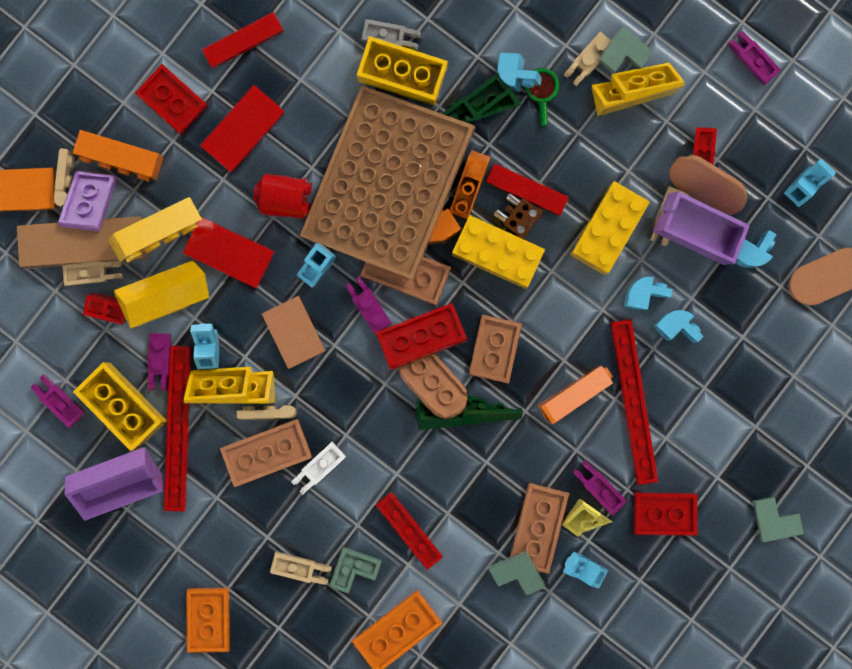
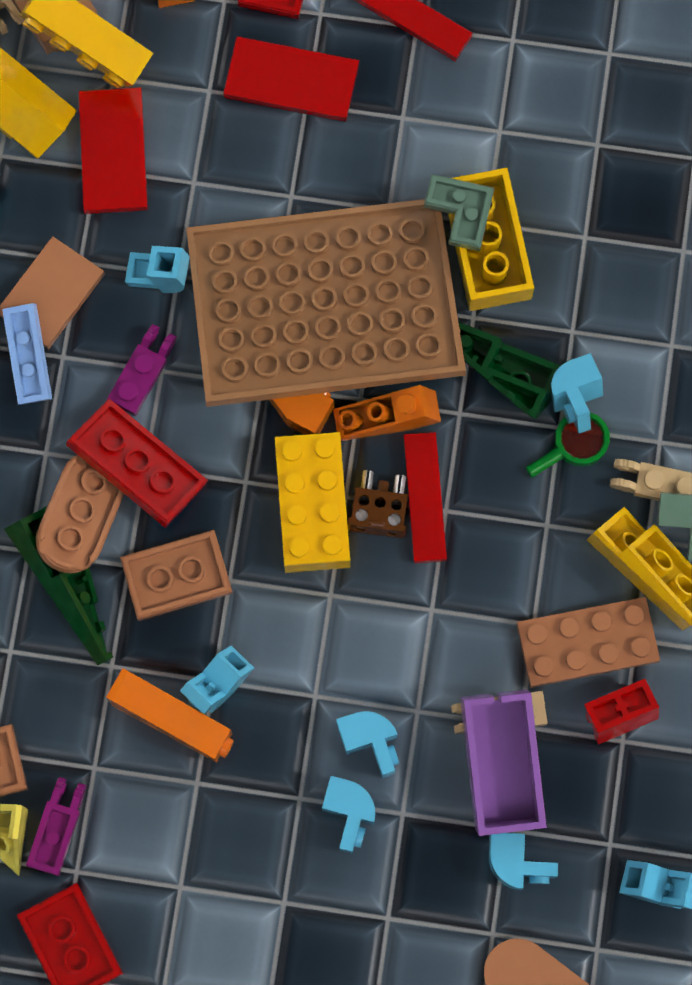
camera: 60 degrees right, 10 degrees down
(282, 196) = (227, 176): red cylinder -> none
(324, 364) = (27, 354): none -> light blue plate
(380, 69) = (469, 204): none -> sand green tile
(390, 33) = (531, 197): light grey hinge -> none
(426, 284) = (215, 430): nougat tile -> none
(569, 358) = (217, 680): none -> medium azure brick
(609, 228) = (433, 637): yellow brick -> none
(634, 402) = (206, 811): red tile -> none
(655, 147) = (588, 642): none -> nougat plate
(708, 184) = (573, 741): nougat tile -> none

